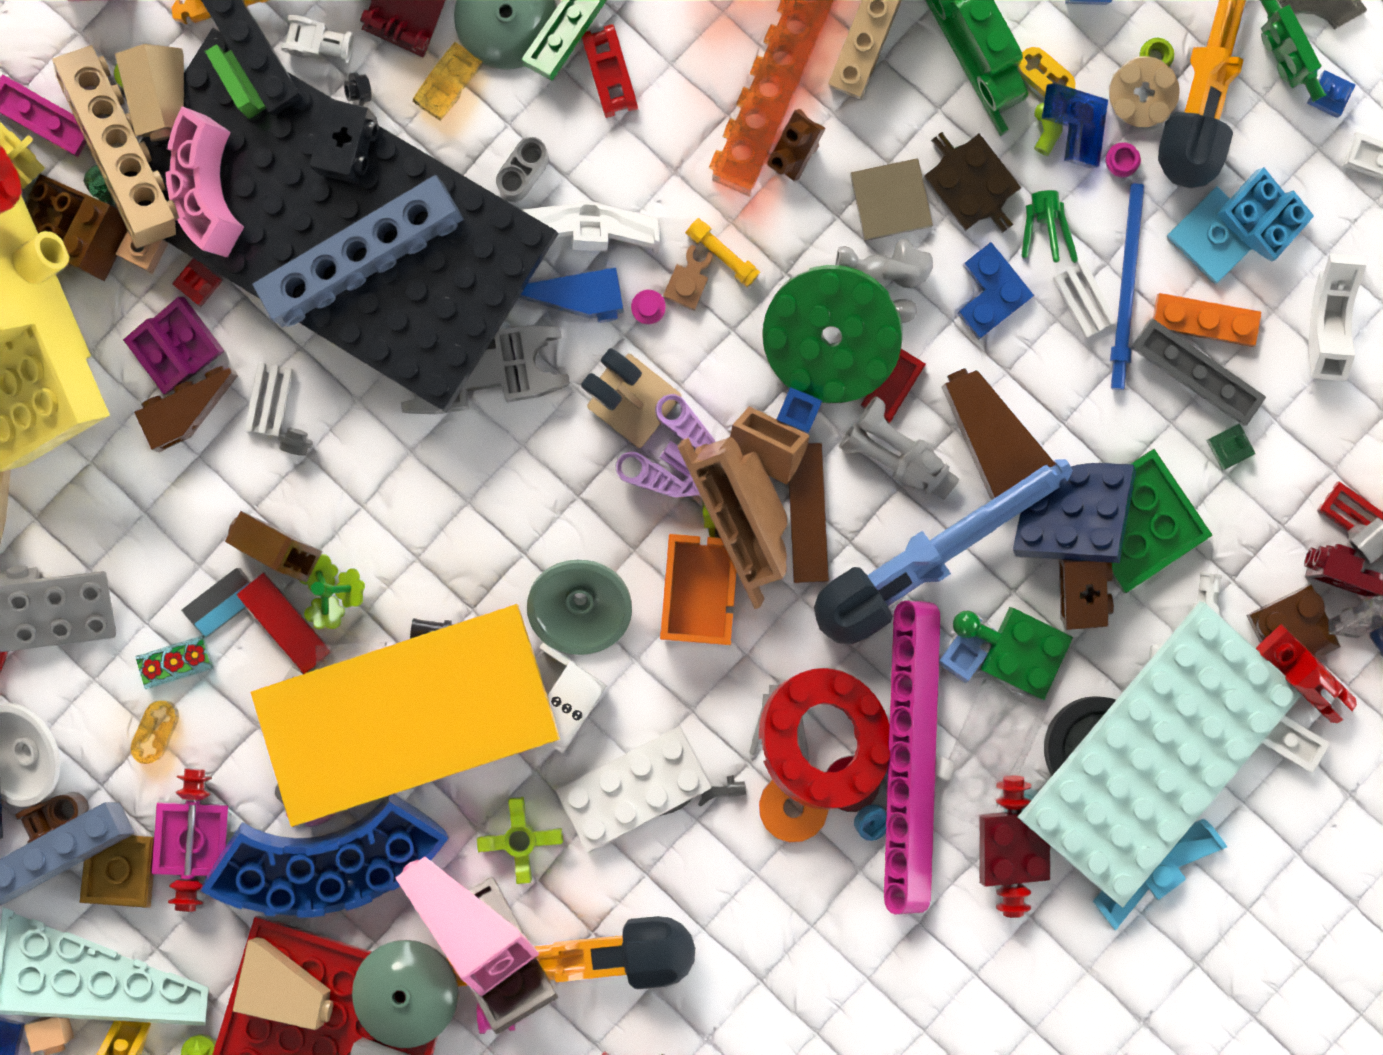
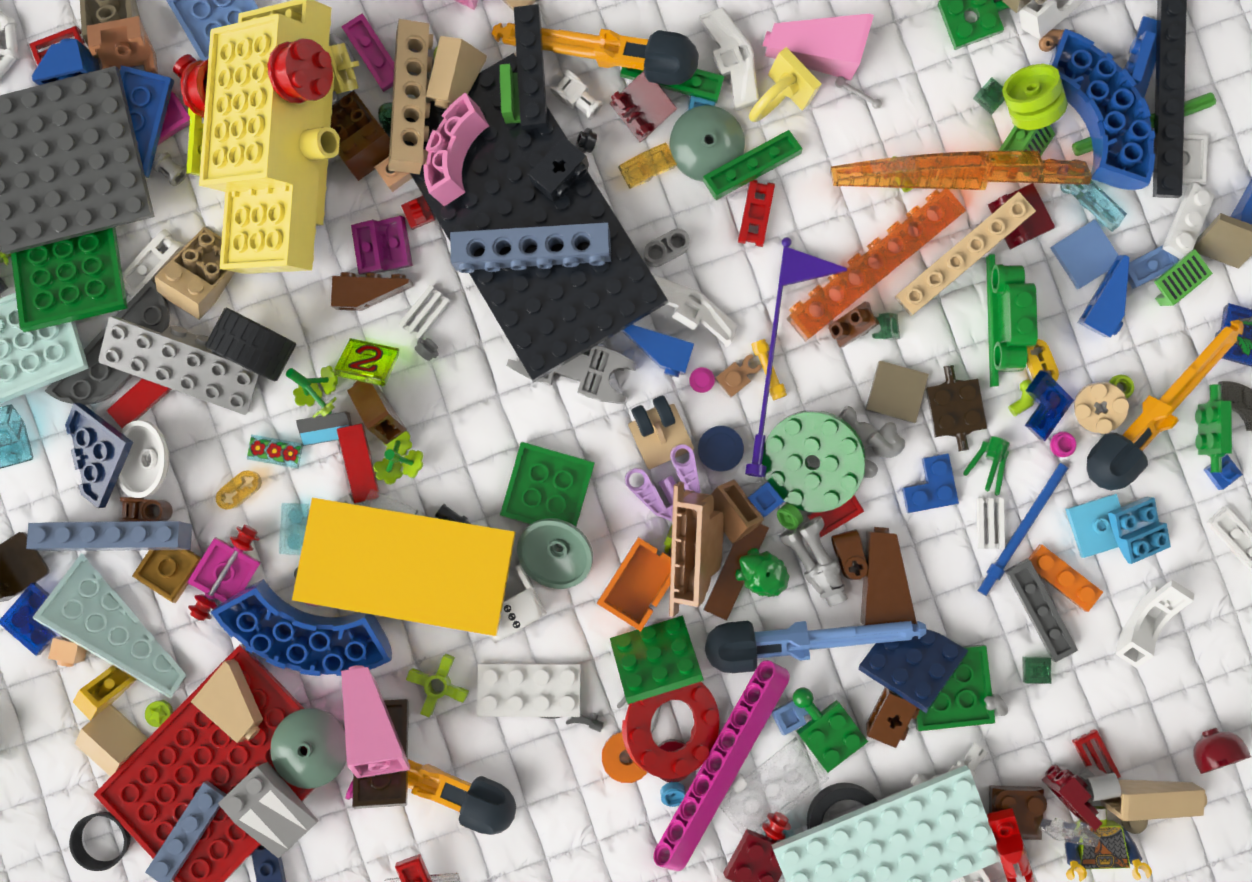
camera: 30 degrees right, 0 degrees up
(79, 544) = (250, 344): none -> black tyre
(177, 568) = (309, 391): none -> lime plant
(231, 494) = (366, 362): none -> clear neon green tile
(246, 742) = (293, 527): none -> clear light blue plate
(526, 531) = (546, 485): none -> green plate
(691, 114) = (795, 268): none -> dark purple piece
(714, 378) = (720, 448): none -> dark blue piece
(766, 669) = (656, 659): none -> green plate
(839, 416) = (789, 516): none -> bright green tile
(841, 127) = (889, 327): none -> clear green tile
(841, 500) = (763, 573): none -> green animal
(930, 419) = (847, 549): none -> reddish brown piece
(1200, 509) = (996, 702): none -> light grey arm

